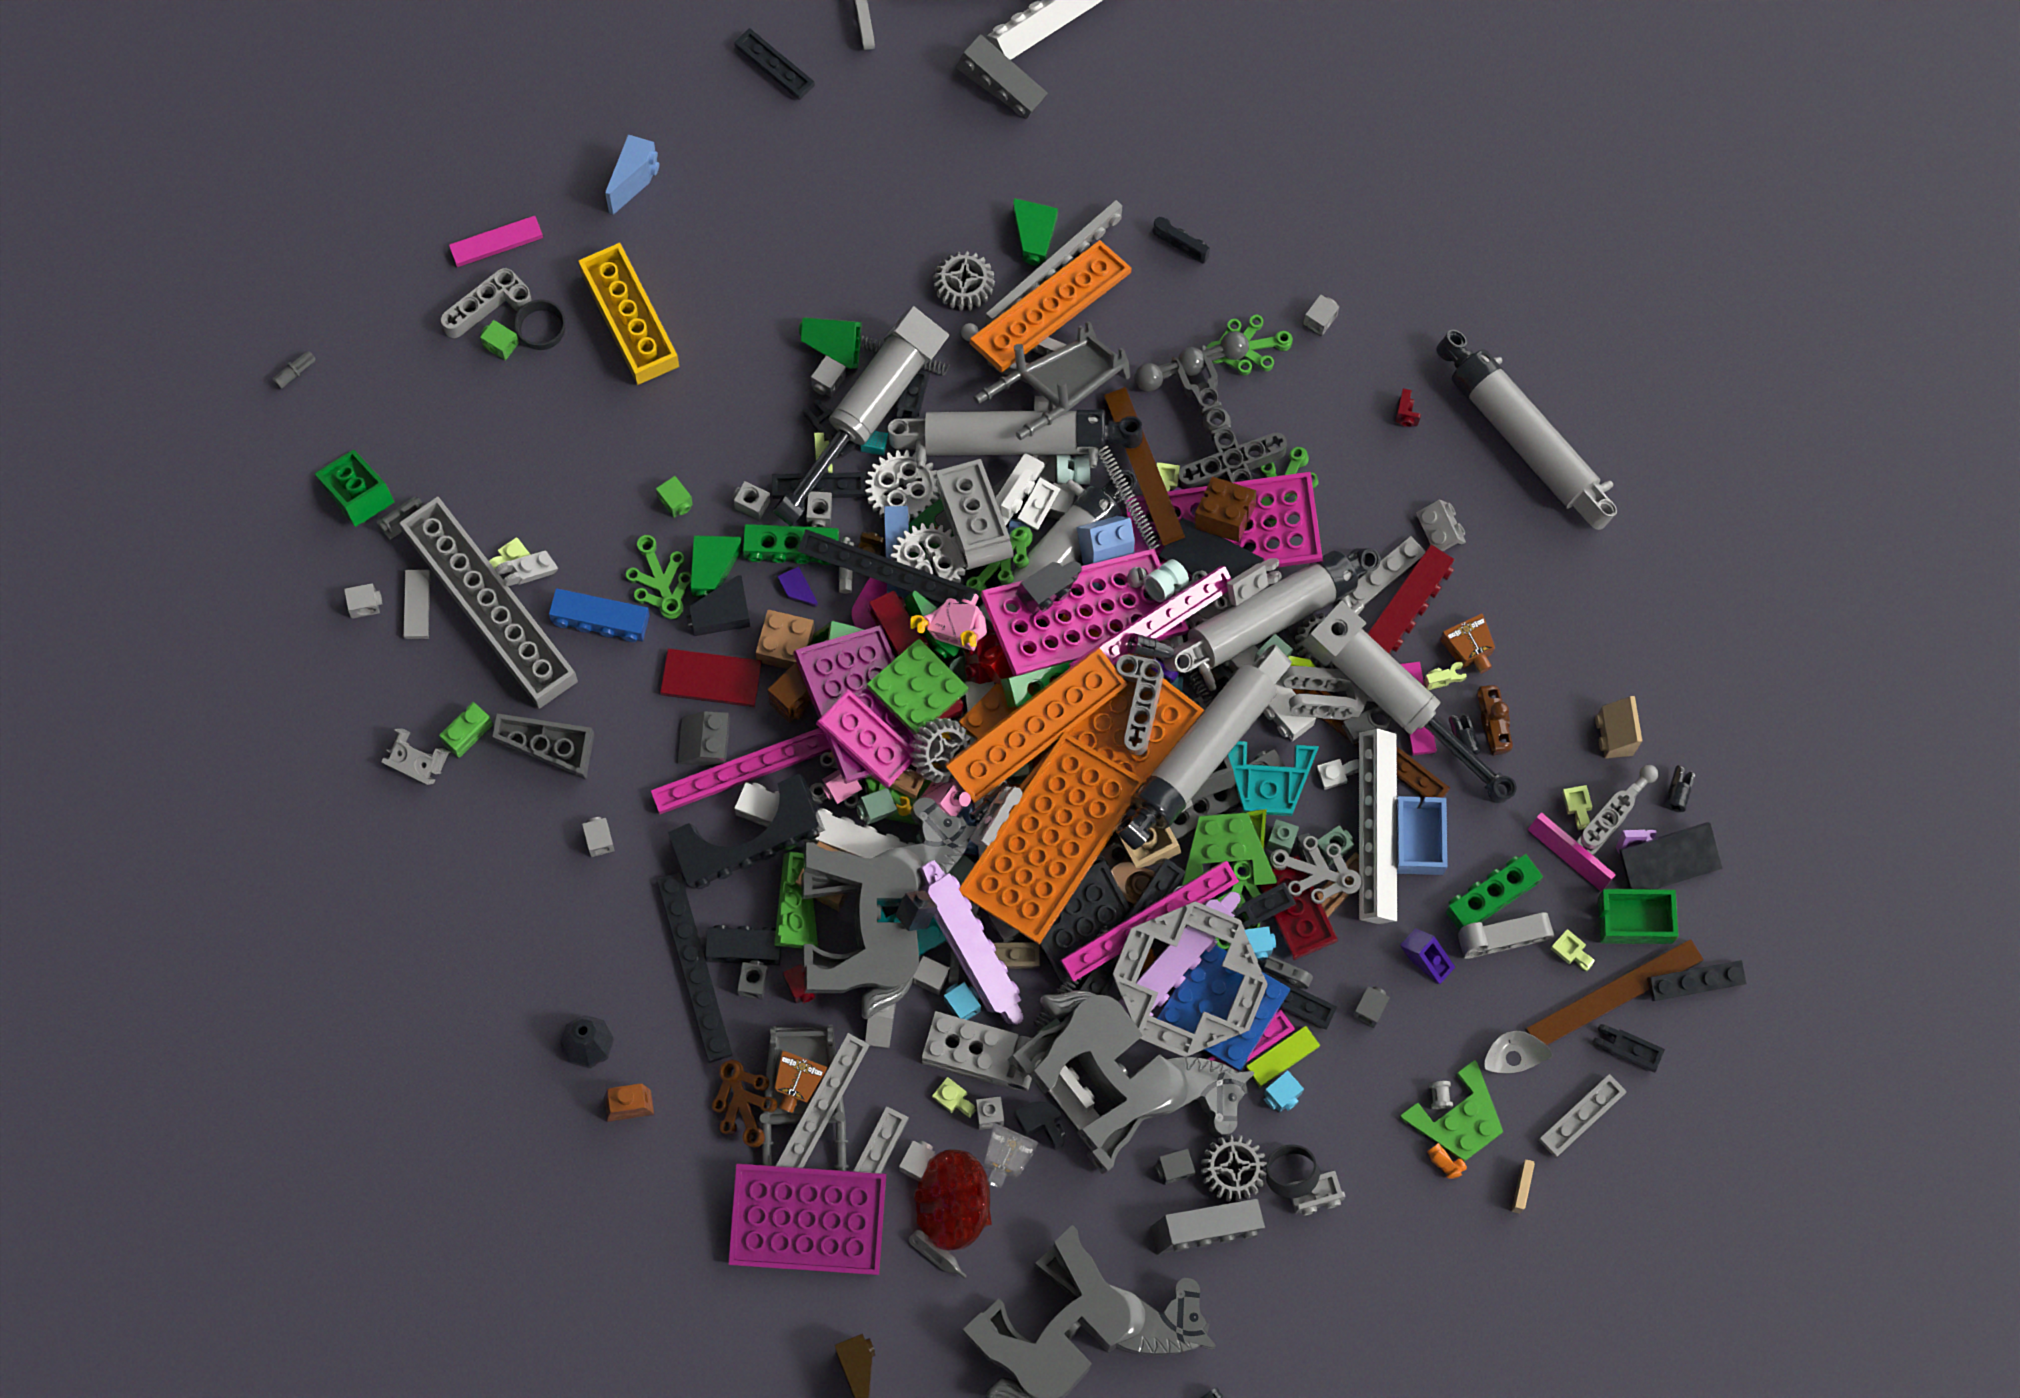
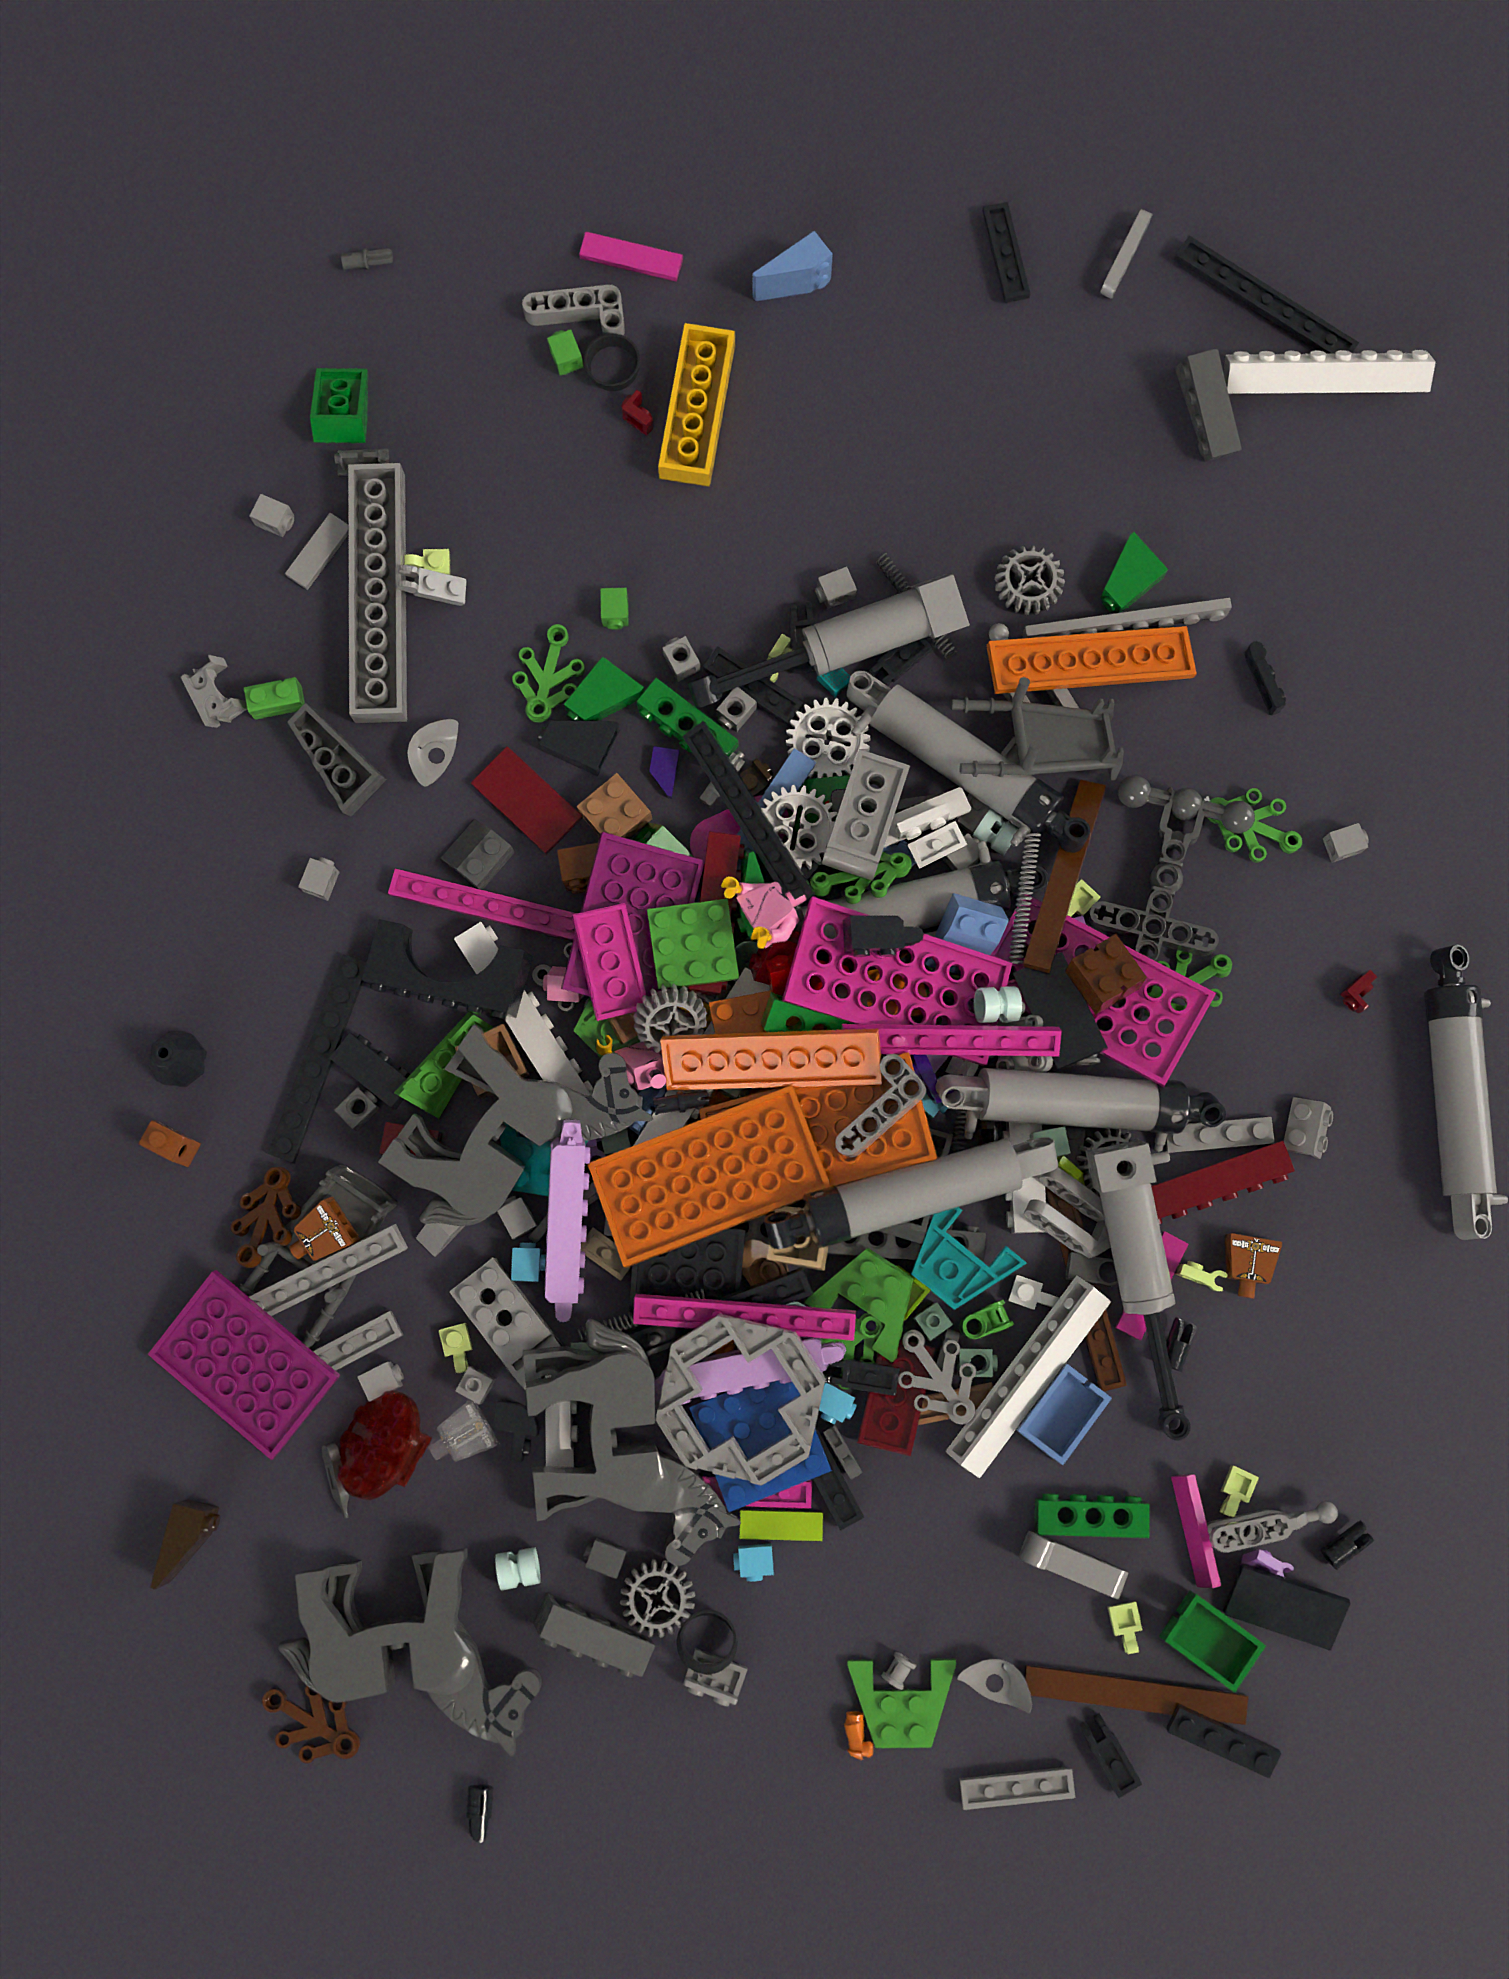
camera: 40 degrees right, 10 degrees up
(587, 351) = (637, 417): none -> dark red bracket
(599, 615) = (467, 672): blue brick -> none
(610, 675) = (440, 735): none -> light grey piece
(833, 338) = (866, 555): green slope -> none
(876, 806) = (577, 1028): sand green brick -> none
(916, 910) = (529, 1159): black brick -> none
(996, 815) = (673, 1118): light grey hinge -> none
(1118, 1219) = (518, 1568): none -> light aqua wheel
(1133, 577) = (969, 979): light grey hinge -> none
(1152, 650) = (929, 1061): black hinge -> none
(1253, 581) = (1080, 1062): light grey hinge -> none
(1321, 810) = (990, 1320): none -> bright green piece
(1371, 1006) = (897, 1539): dark grey brick -> none
(1427, 955) = (985, 1530): dark purple slope -> none
(1495, 719) = (1218, 1351): reddish brown piece -> none
(1523, 1186) = (910, 1813): tan tile -> none
(1619, 728) = (1331, 1446): tan slope -> none

